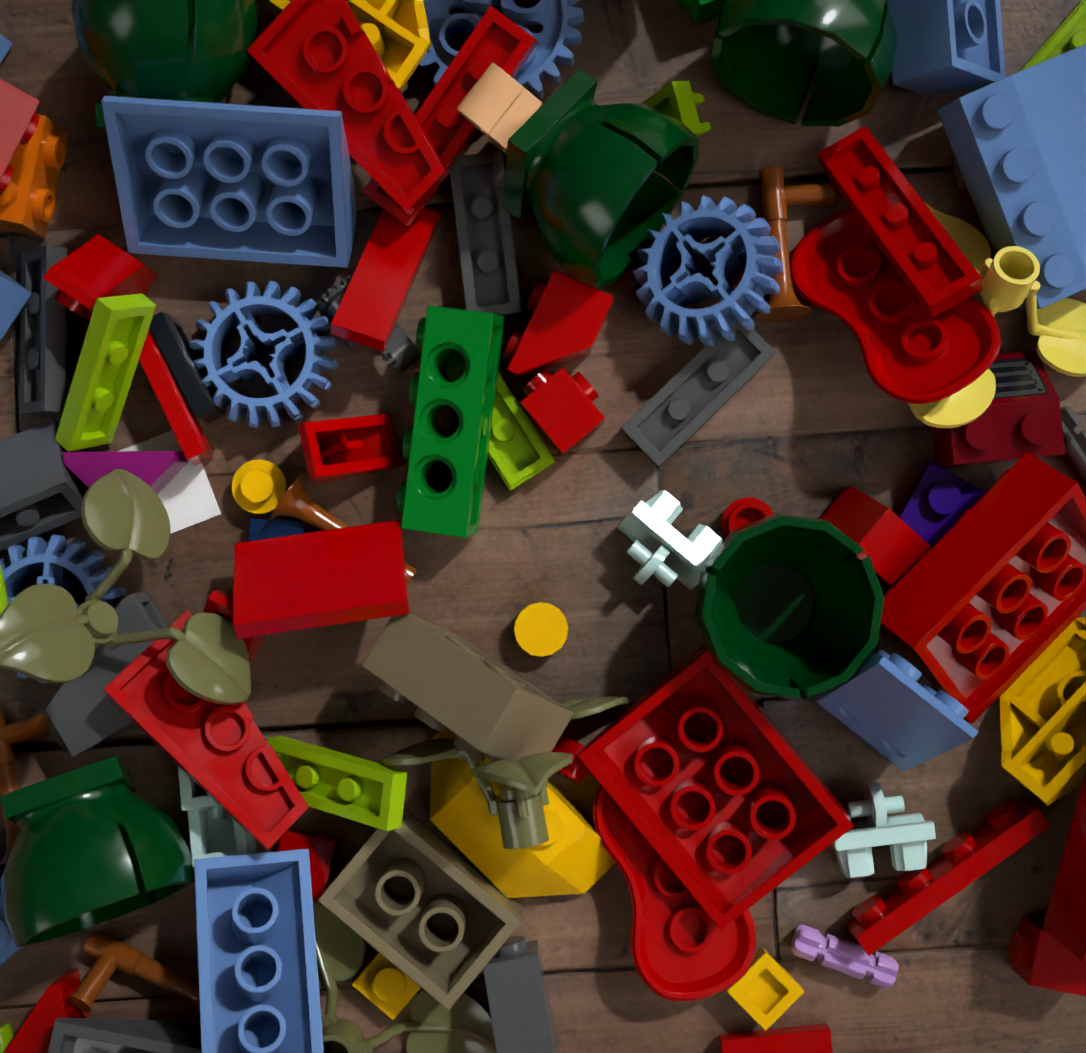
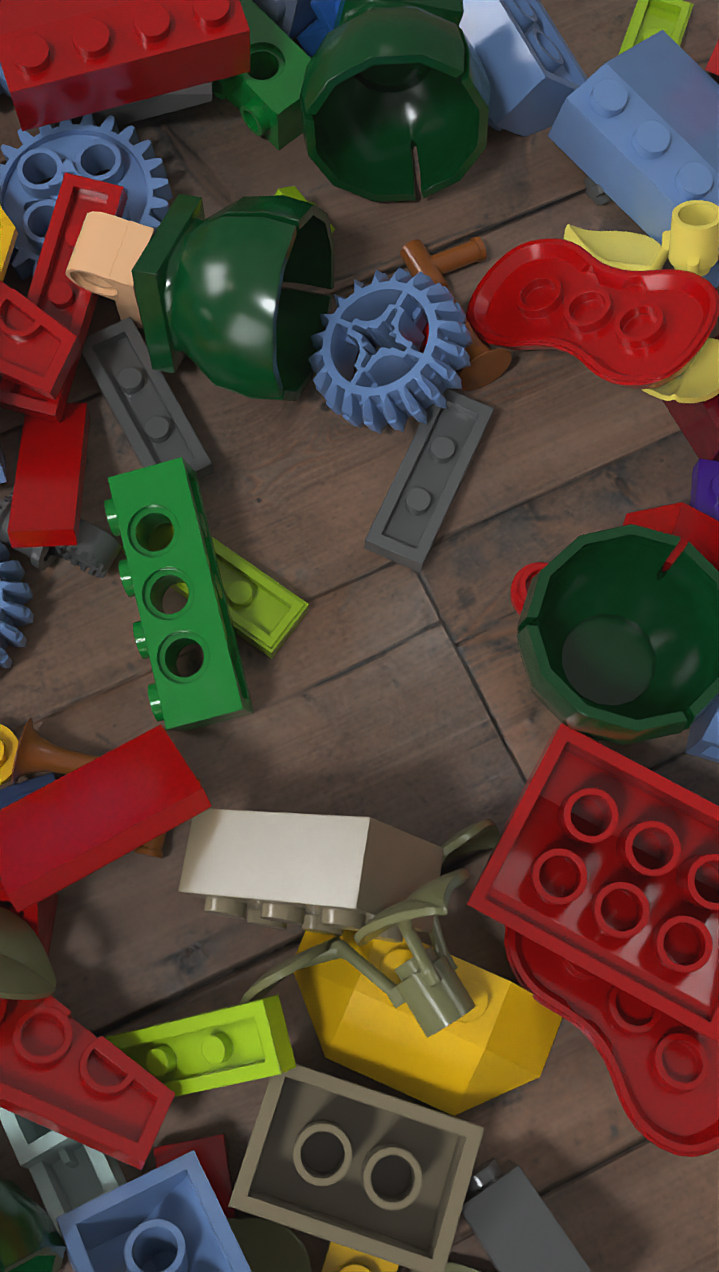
camera: 30 degrees left, 15 degrees down
(349, 447) = (75, 671): red slope -> none
(541, 629) = (366, 788): yellow piece -> none
(562, 325) = (260, 462): red slope -> none
(562, 408) = (295, 545): red brick -> none
(577, 769) = (465, 925): red plate -> none
(664, 549) = (464, 644): light aqua hips -> none
(900, 222) = (563, 235): red plate -> none

